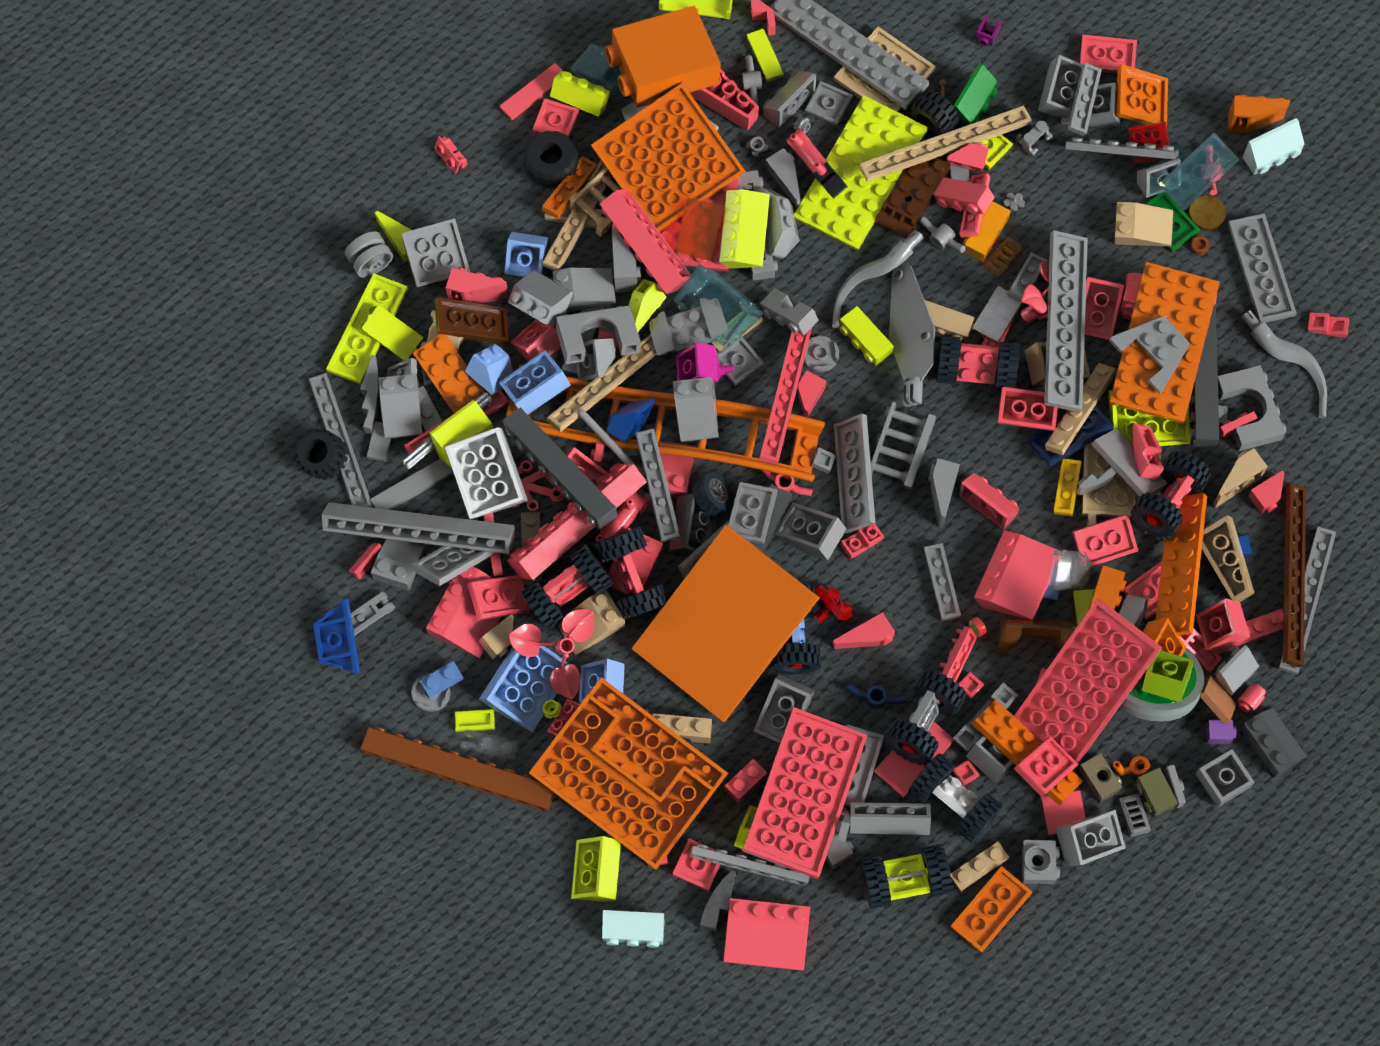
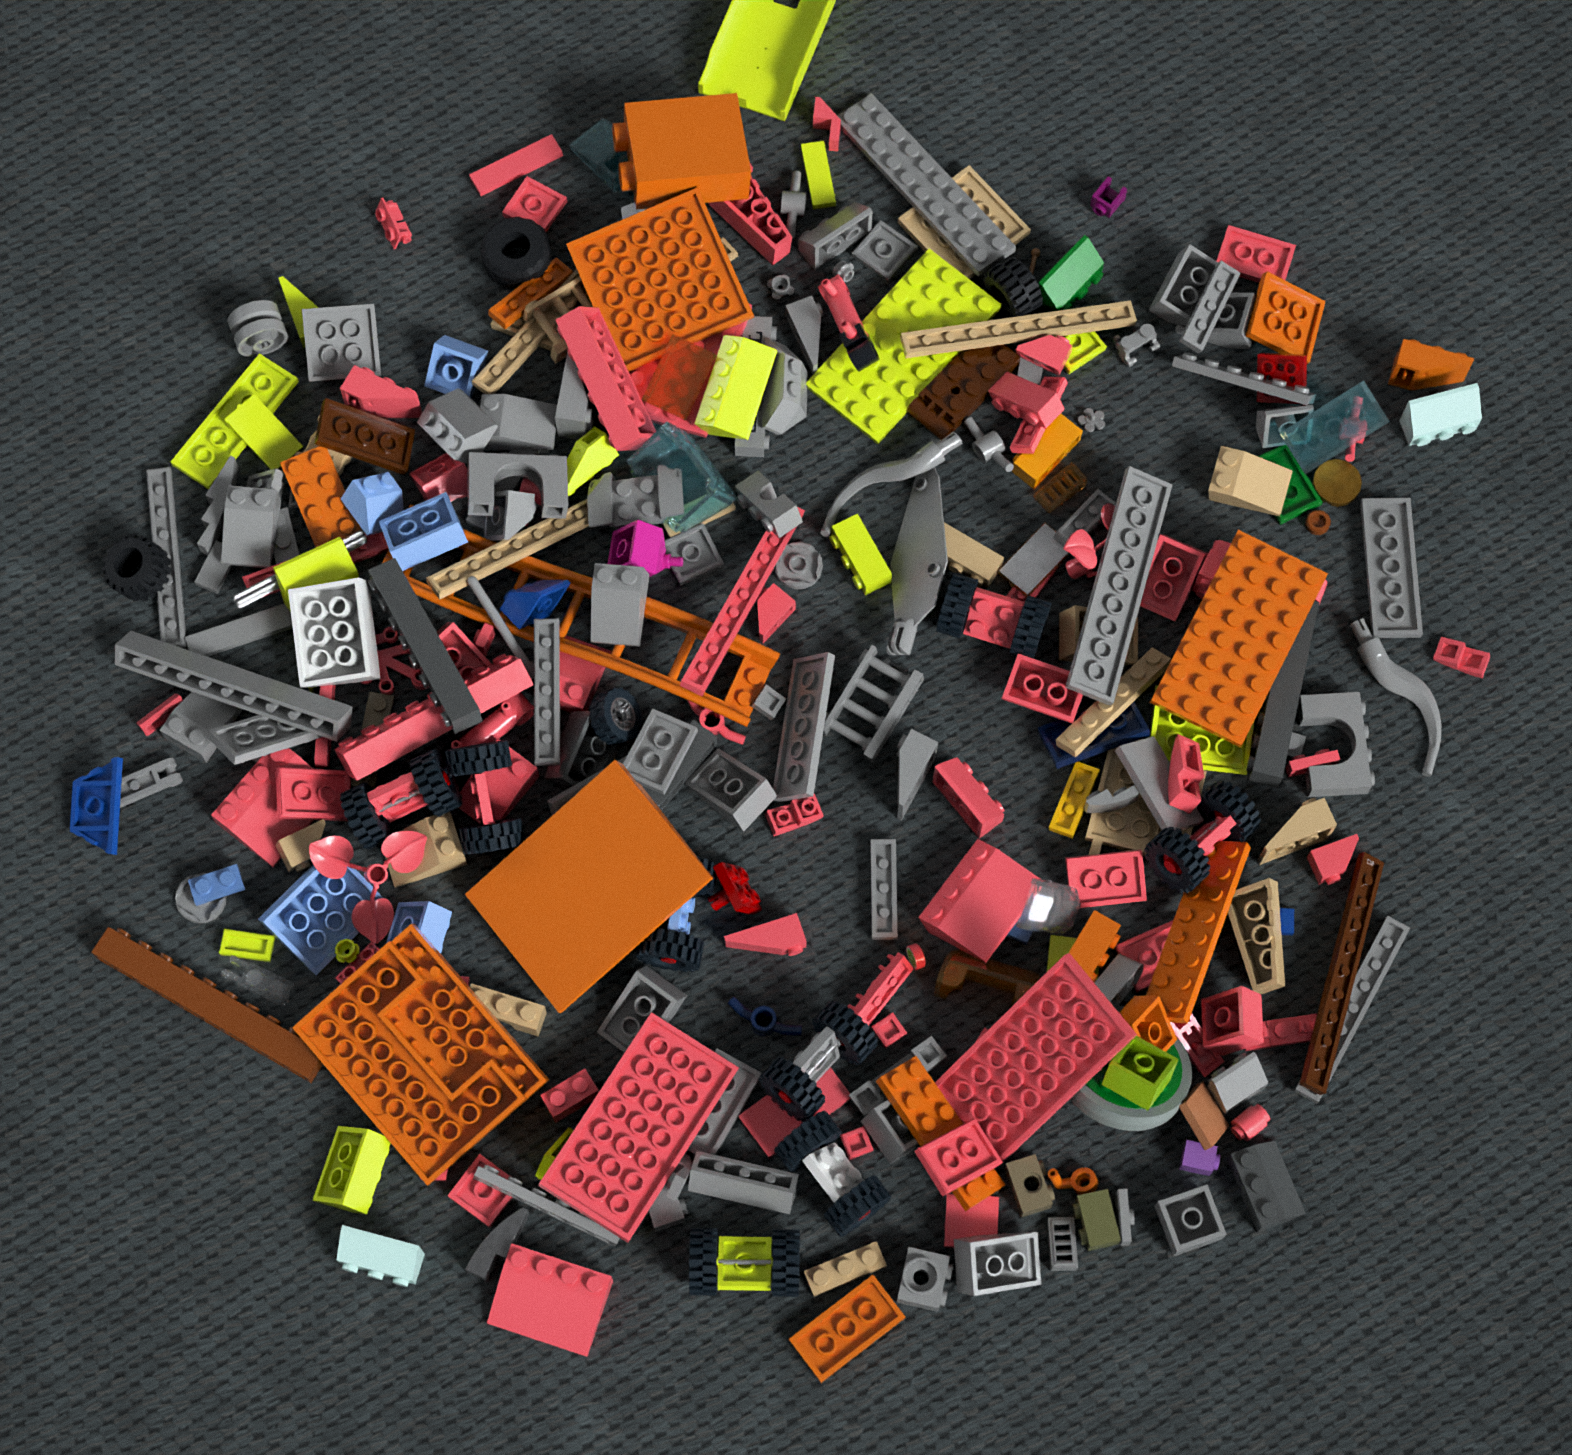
camera: 10 degrees right, 0 degrees up
(580, 93) = (572, 178): neon yellow brick -> none
(1160, 342) = (1233, 637): light grey wing -> none

